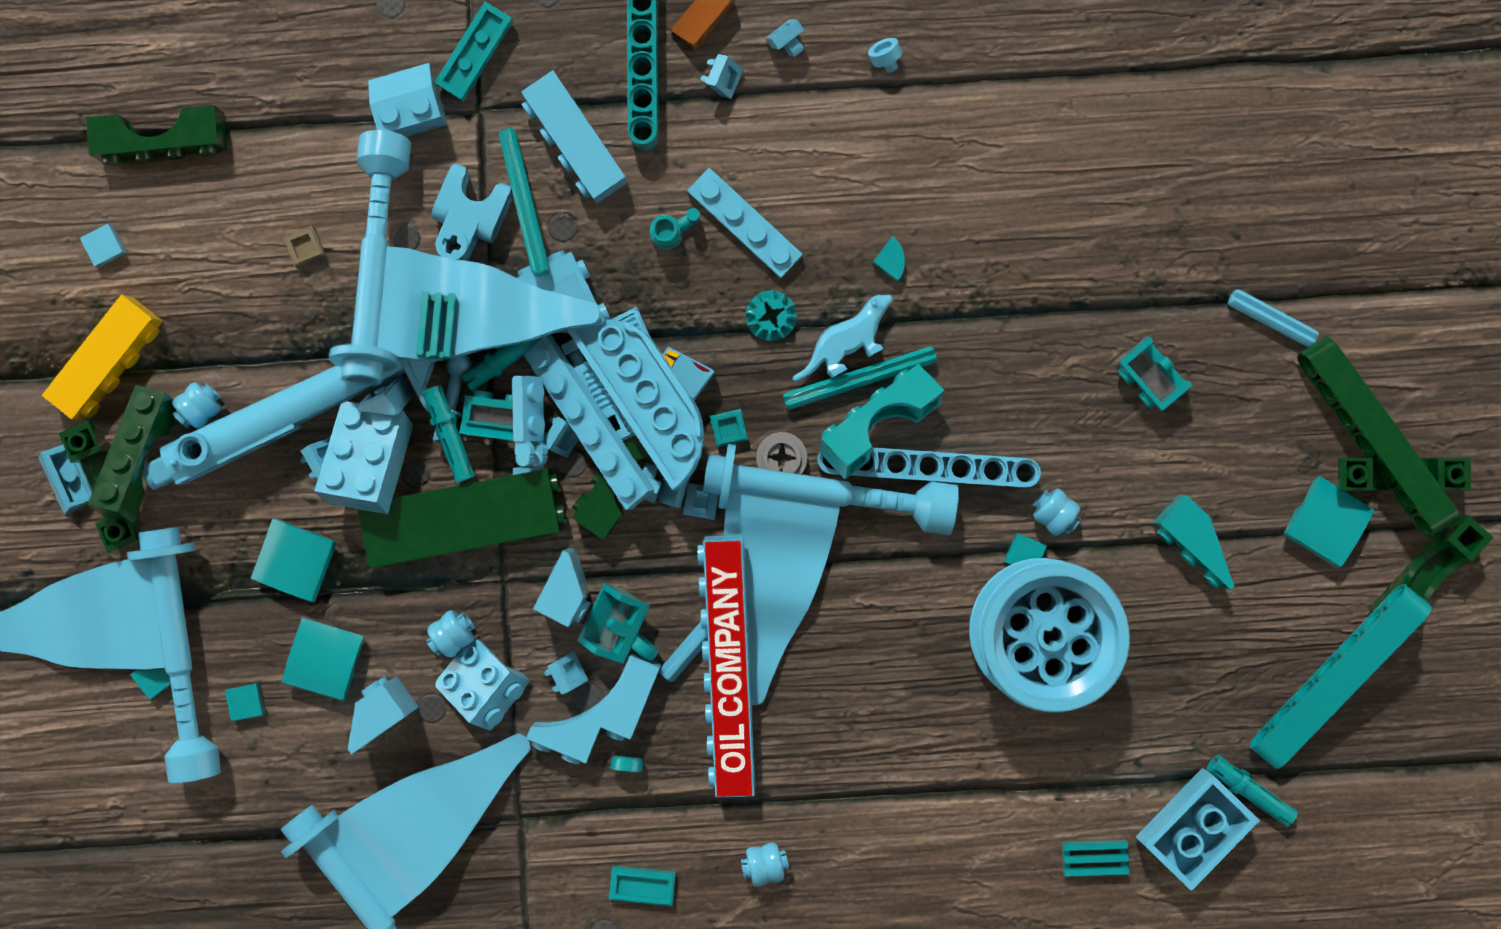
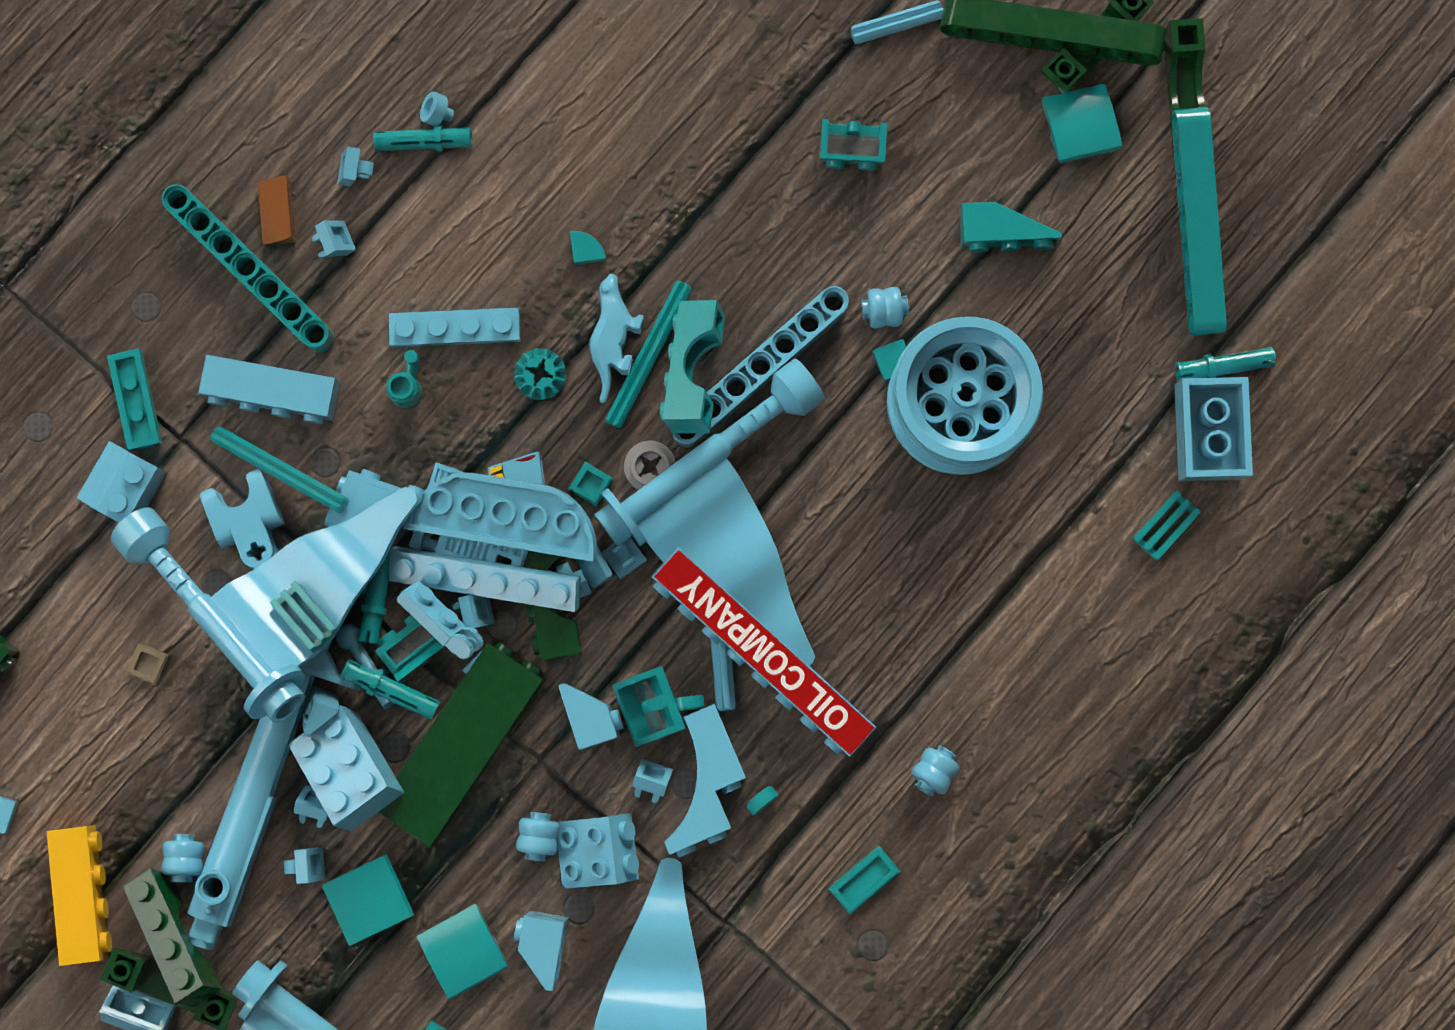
camera: 45 degrees left, 5 degrees down
(275, 495) = (307, 865): none -> medium azure tile
(856, 67) = (423, 139): none -> teal pin

